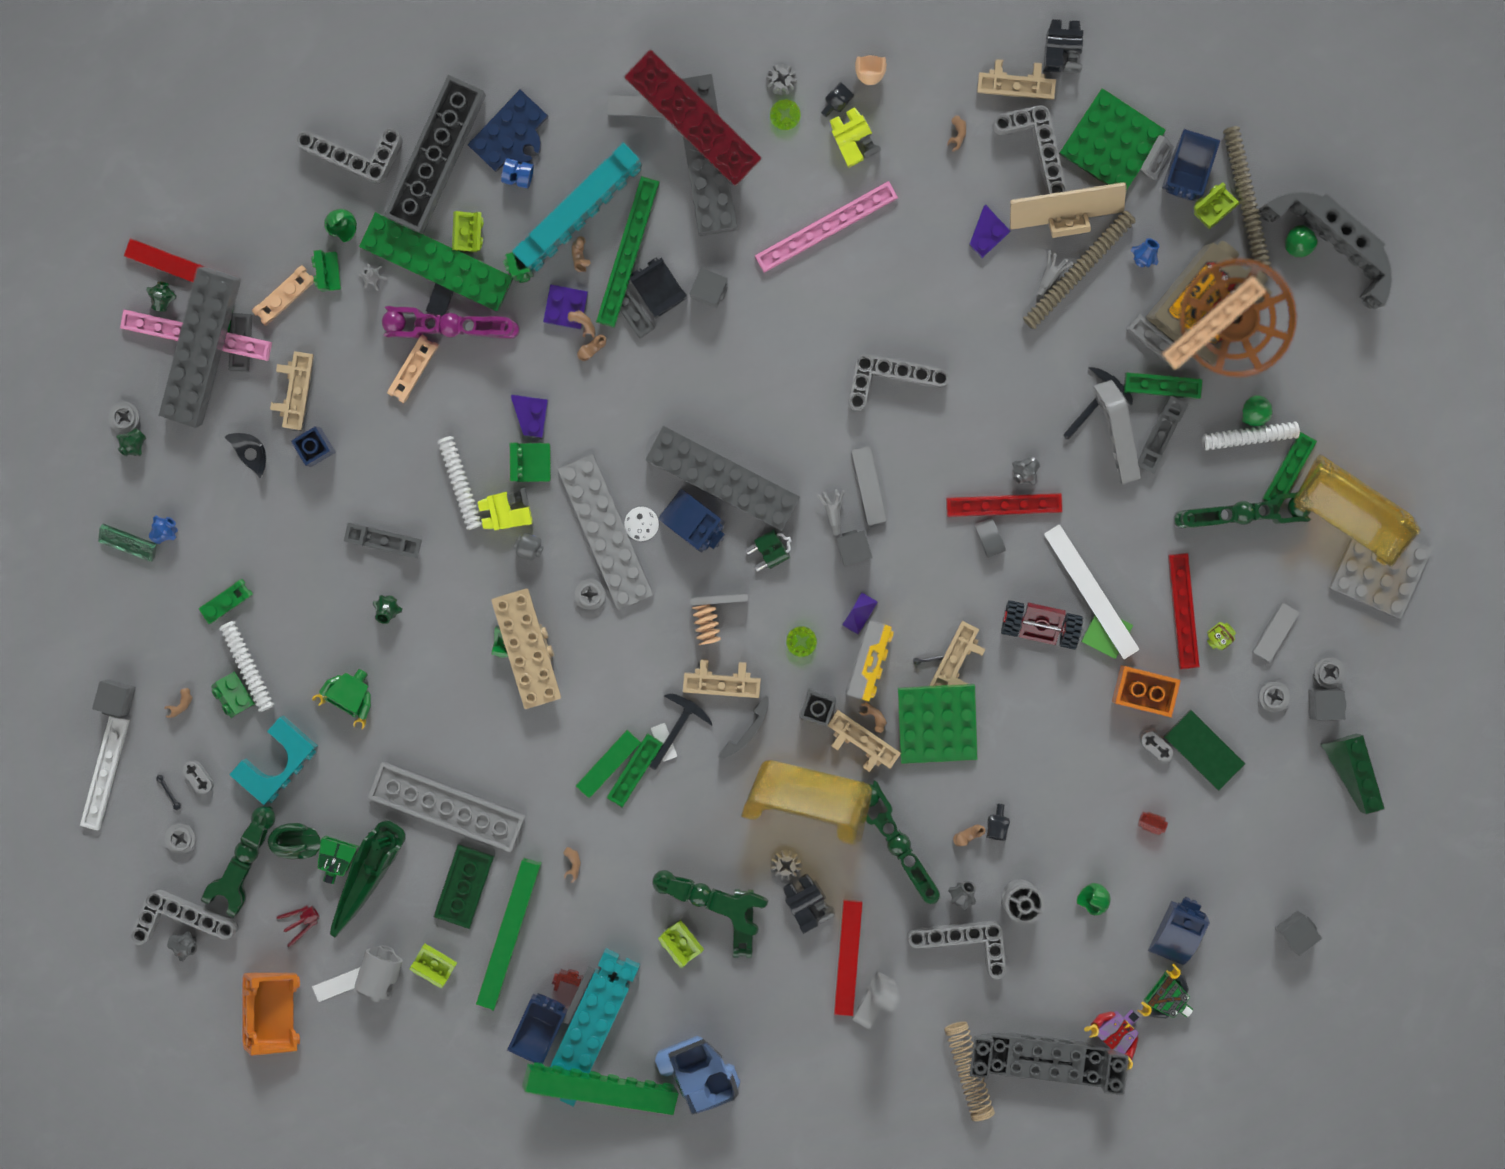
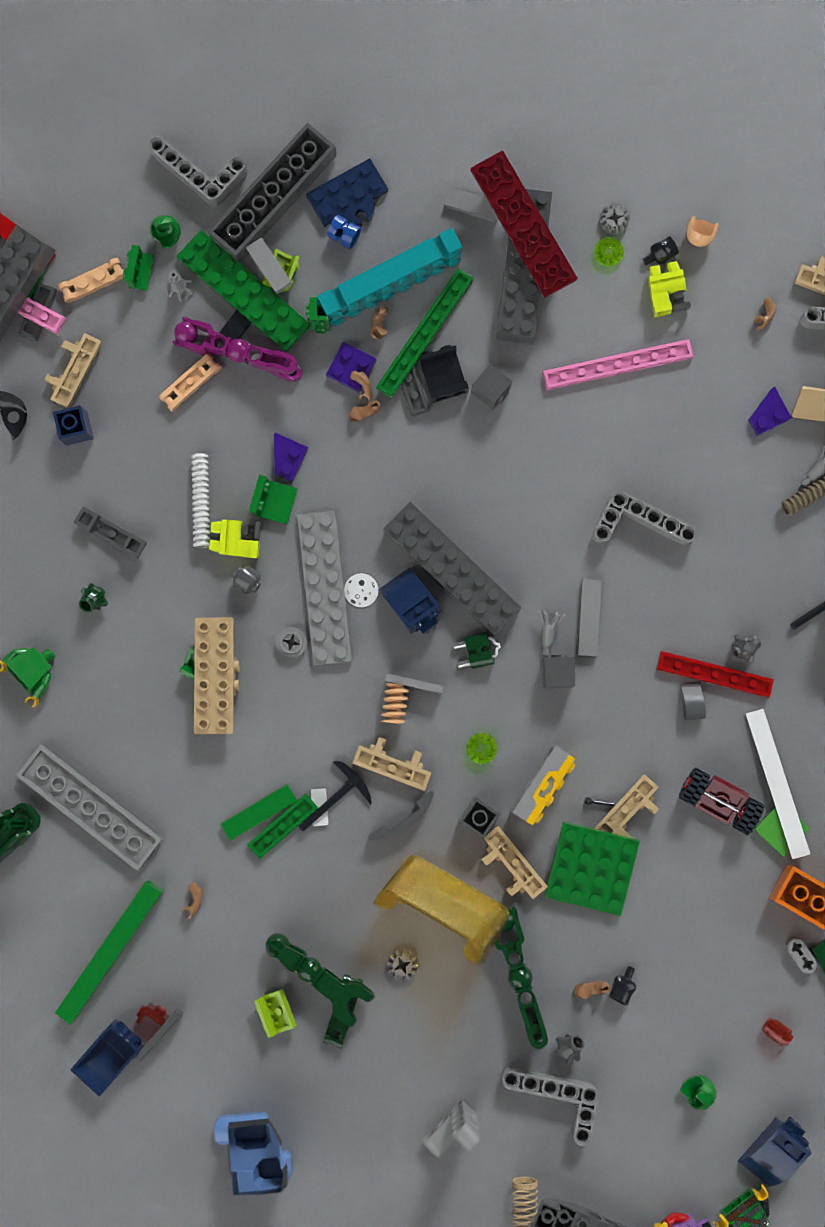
camera: 15 degrees right, 5 degrees down
(433, 966) = (25, 961): lime bracket -> none
(454, 231) = (269, 265): none -> light grey tile
(463, 886) = (81, 891): dark green tile -> none
(595, 1014) = (159, 1071): teal brick -> none
(600, 1089) = (149, 1138): green brick -> none
(801, 901) = (409, 1004): black hips -> none
(848, 957) = (436, 1077): red tile -> none
(859, 613) = (545, 737): dark purple slope -> none
(879, 720) = (536, 849): medium nougat piece -> none
(1022, 901) = (627, 1073): light grey cylinder -> none

